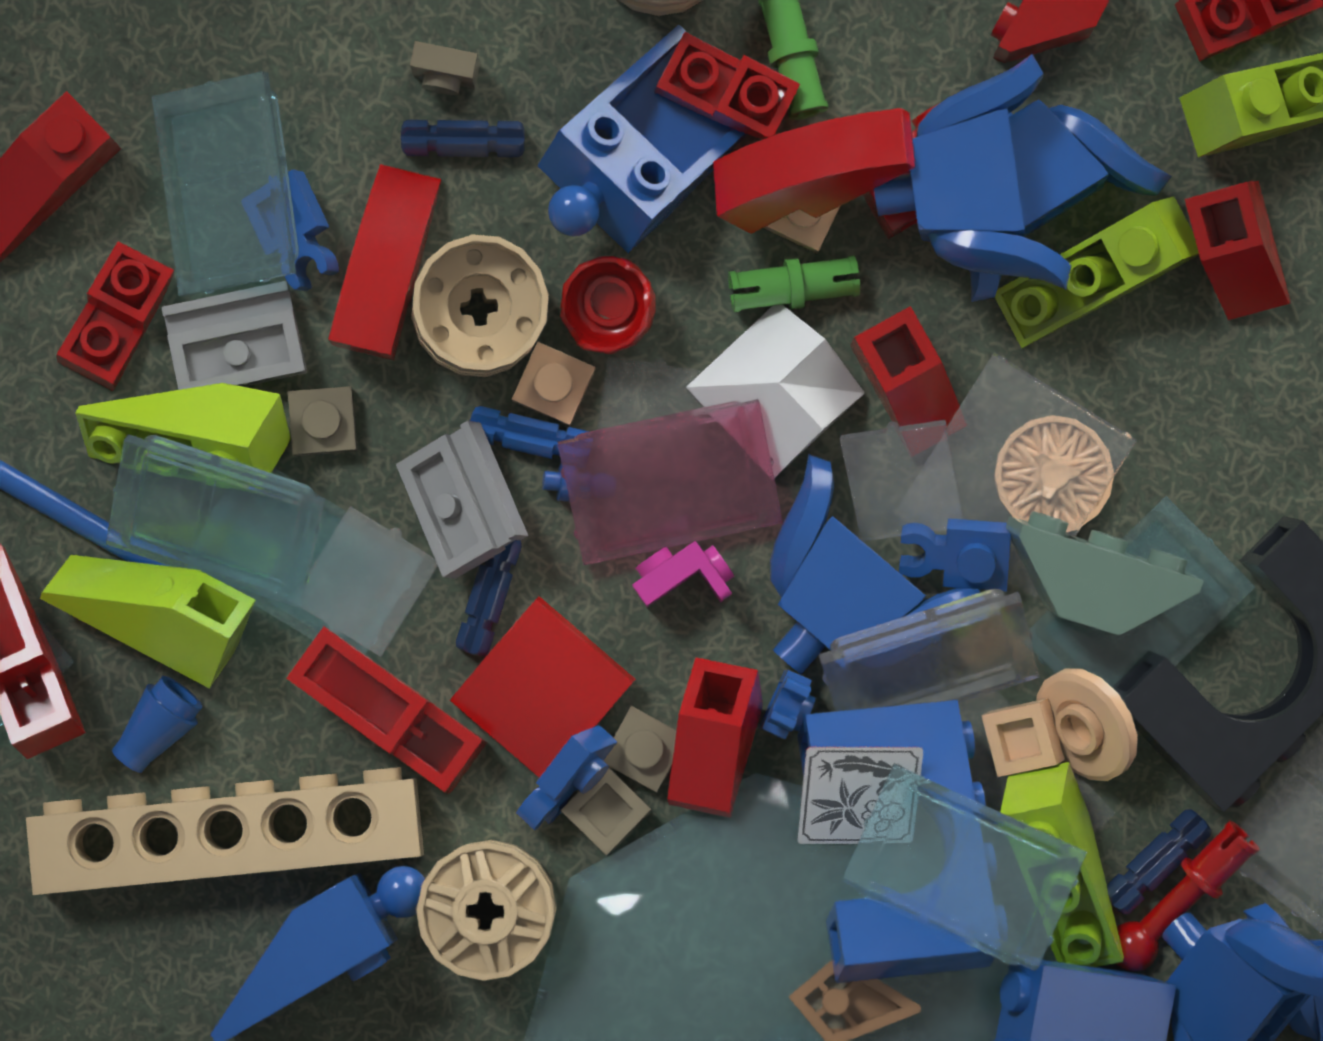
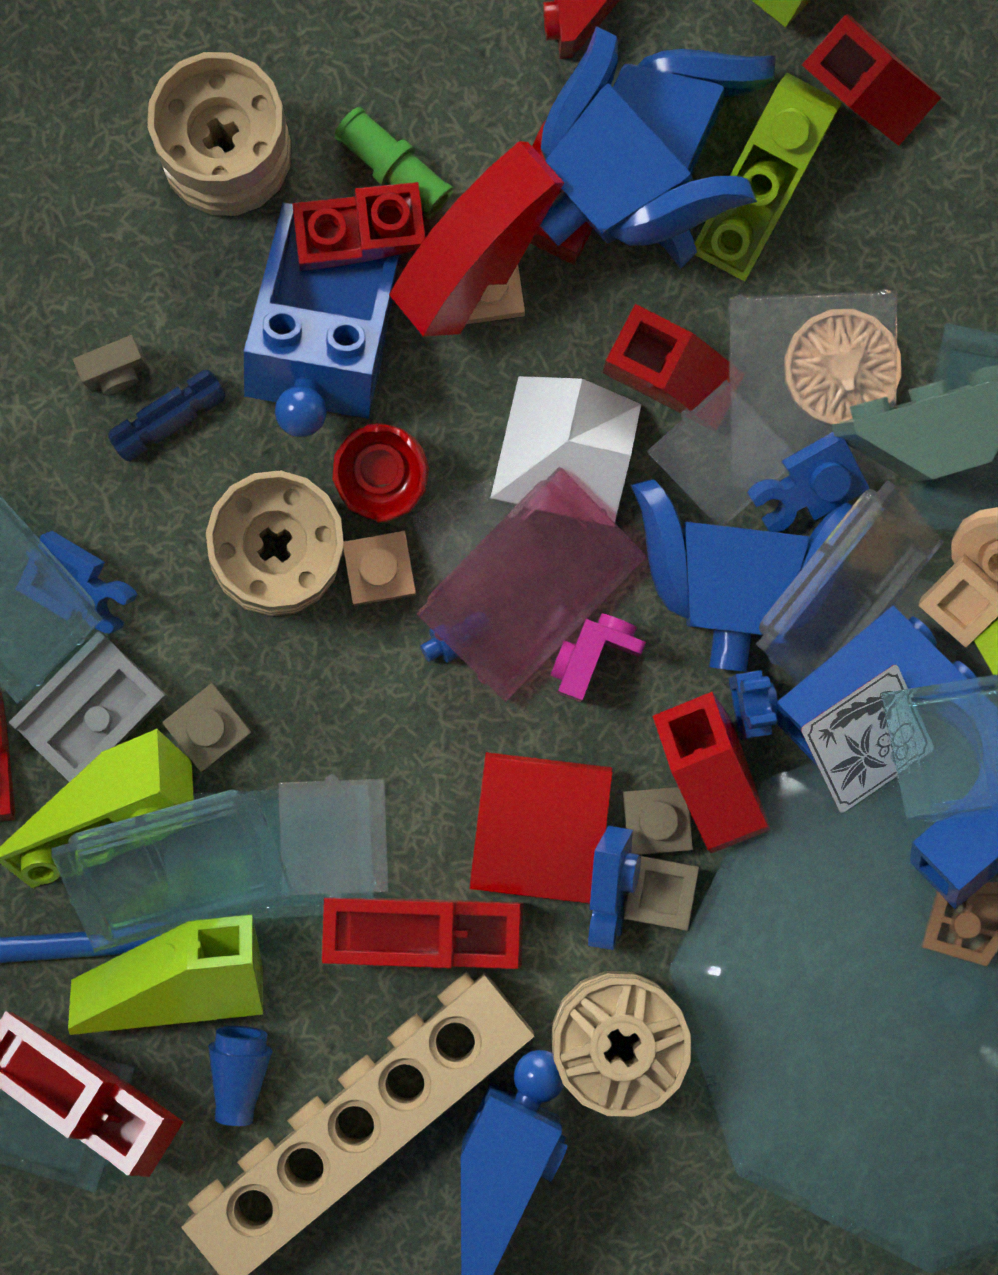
camera: 30 degrees left, 0 degrees up
(385, 262) = (171, 561): red slope -> none
(461, 500) = (368, 715): light grey plate -> none
(487, 601) = (442, 778): dark blue axle -> none
(522, 432) = (377, 627): blue axle -> none
(794, 283) = (522, 352): bright green pin -> none

